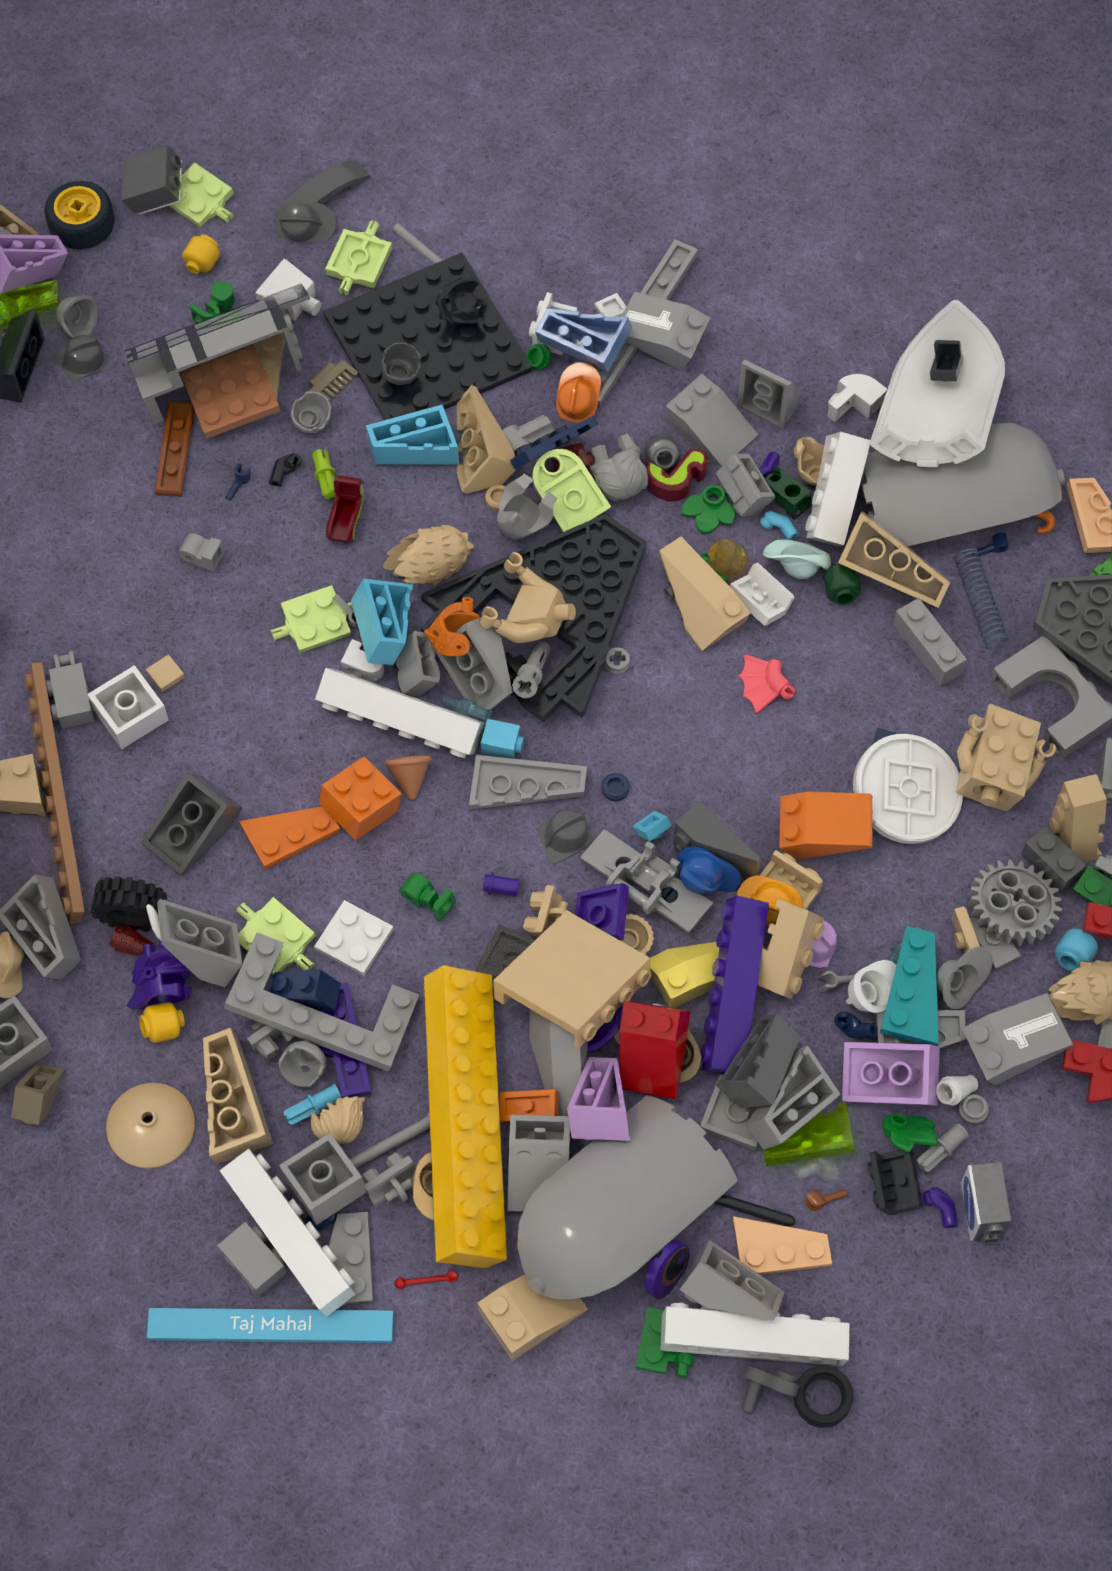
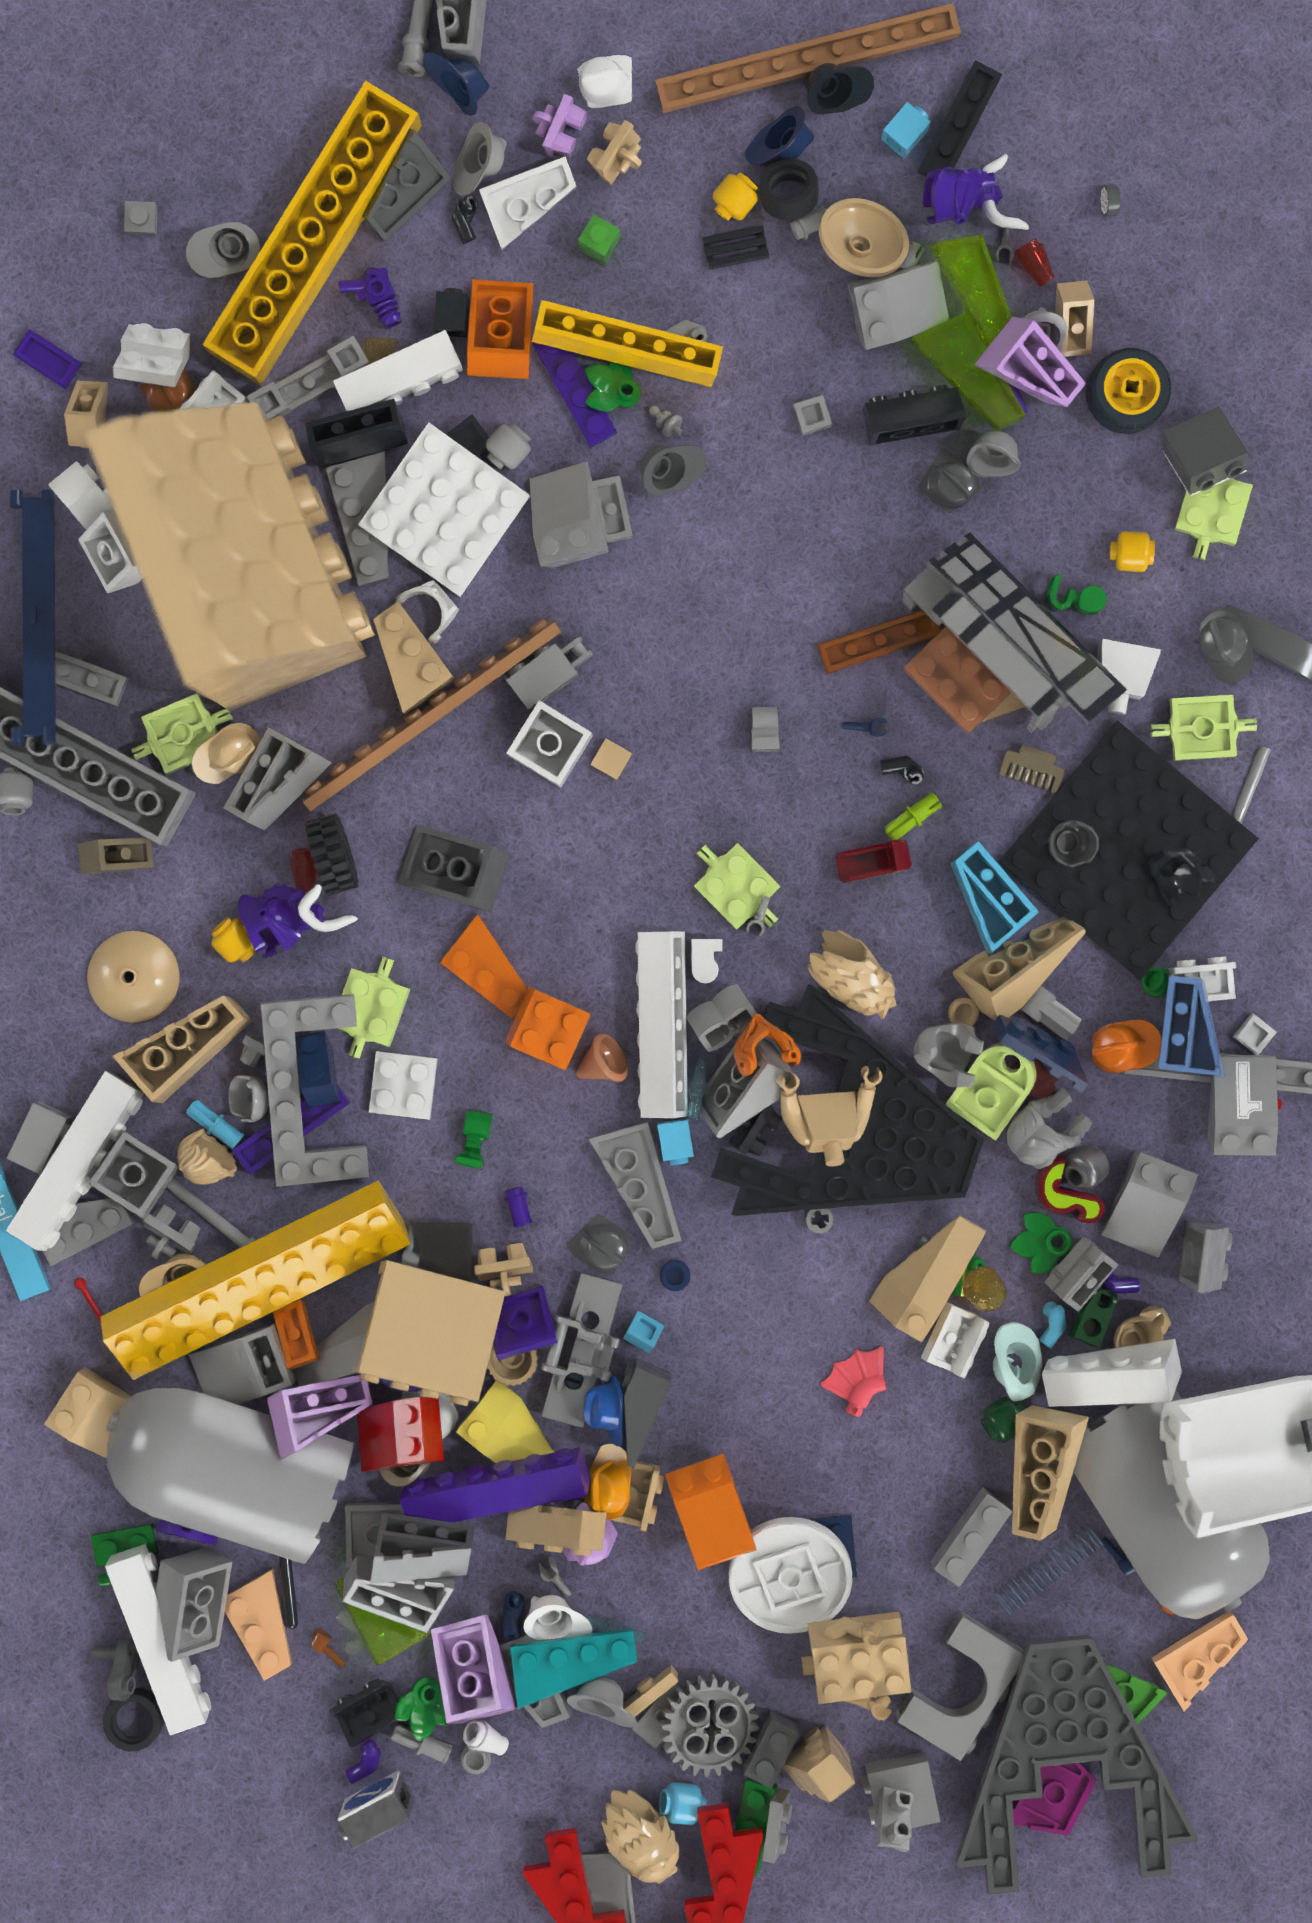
camera: 70 degrees right, 25 degrees up
(200, 942) = (316, 947): light grey slope -> none
(306, 408) = (979, 758): light grey hair -> none
(382, 618) = (752, 964): medium azure wedge -> none
(531, 672) = (753, 1145): light grey pin -> none
(857, 391) = (1253, 1350): white brick -> none
(1017, 1038) = (557, 1782): light grey slope -> none

